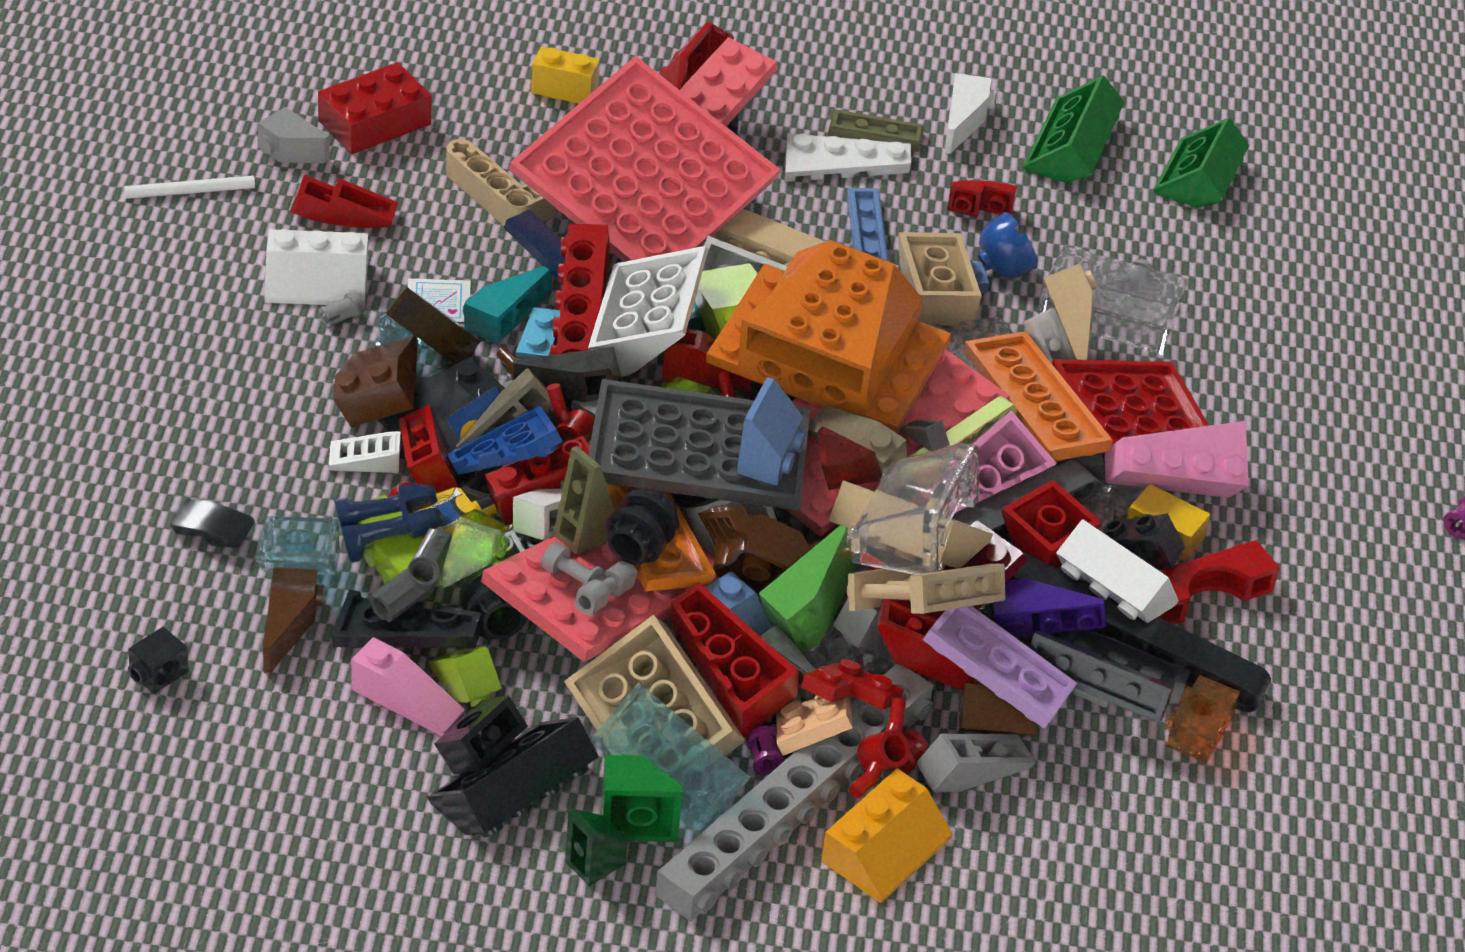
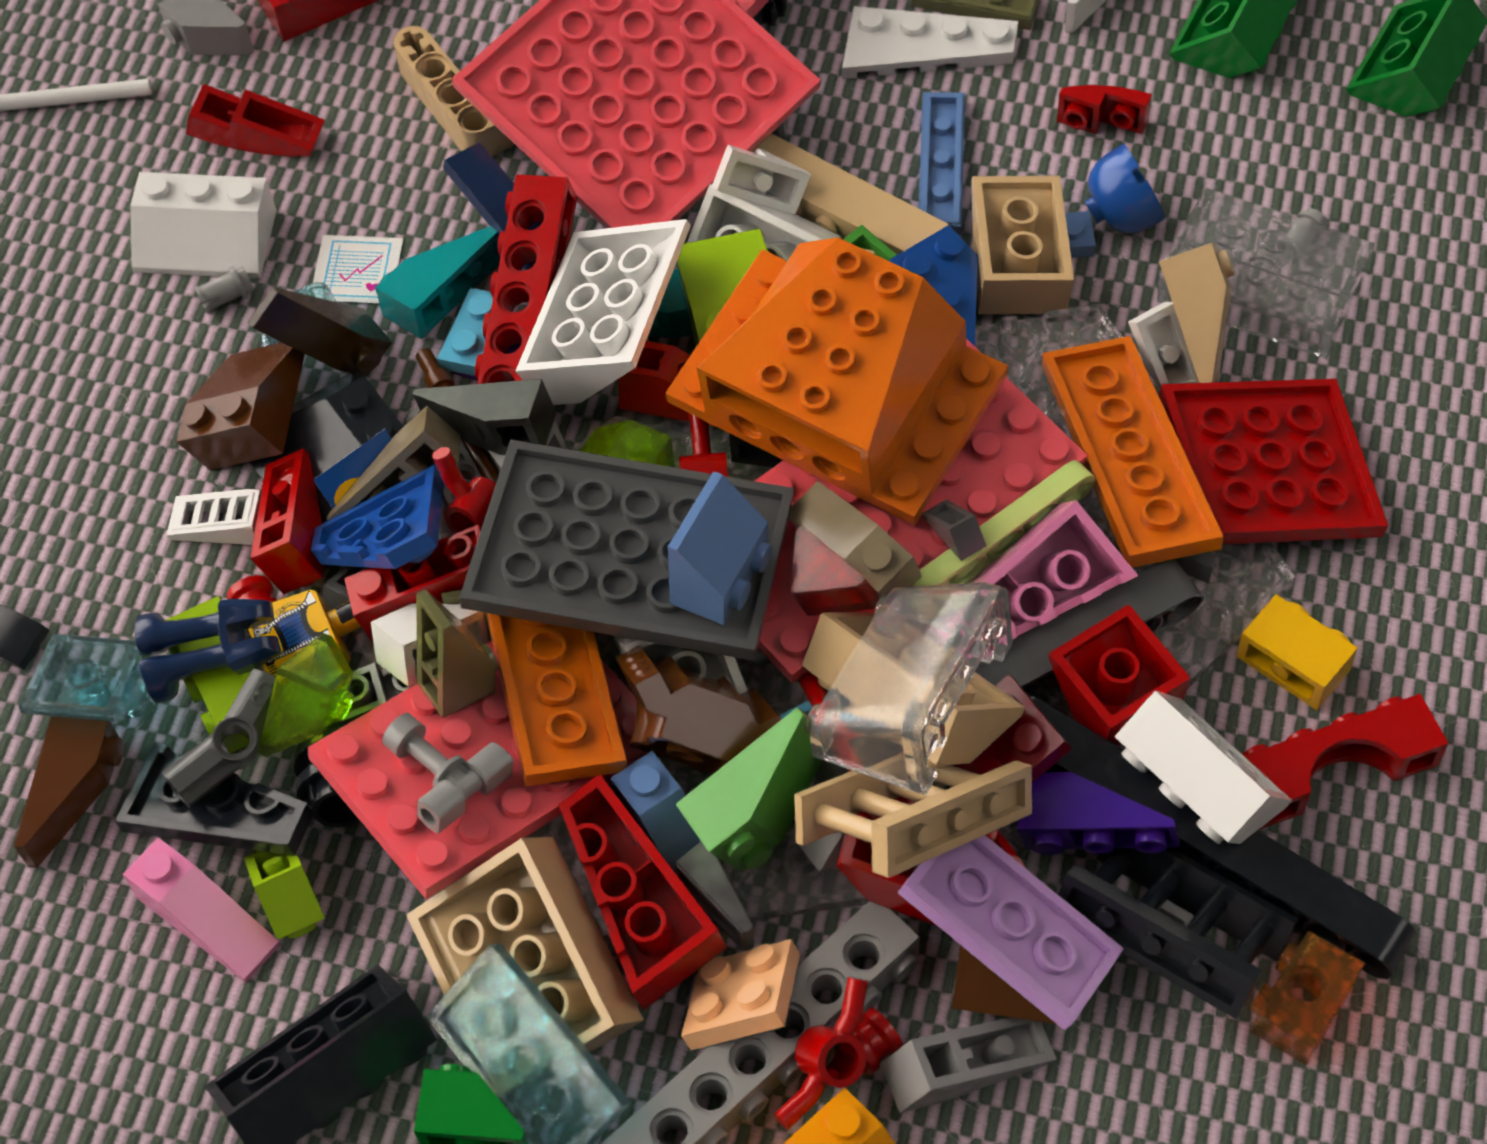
camera: 15 degrees right, 15 degrees up
(481, 735) = (282, 998): black brick -> none
(642, 526) = (528, 687): black piece -> none
(745, 232) = (761, 179): none -> white slope
(765, 750) = (669, 1023): magenta bush -> none
(848, 679) = (795, 935): red plate -> none
(1149, 538) = (1249, 700): black brick -> none
(1186, 460) = (1342, 558): bright pink wedge -> none

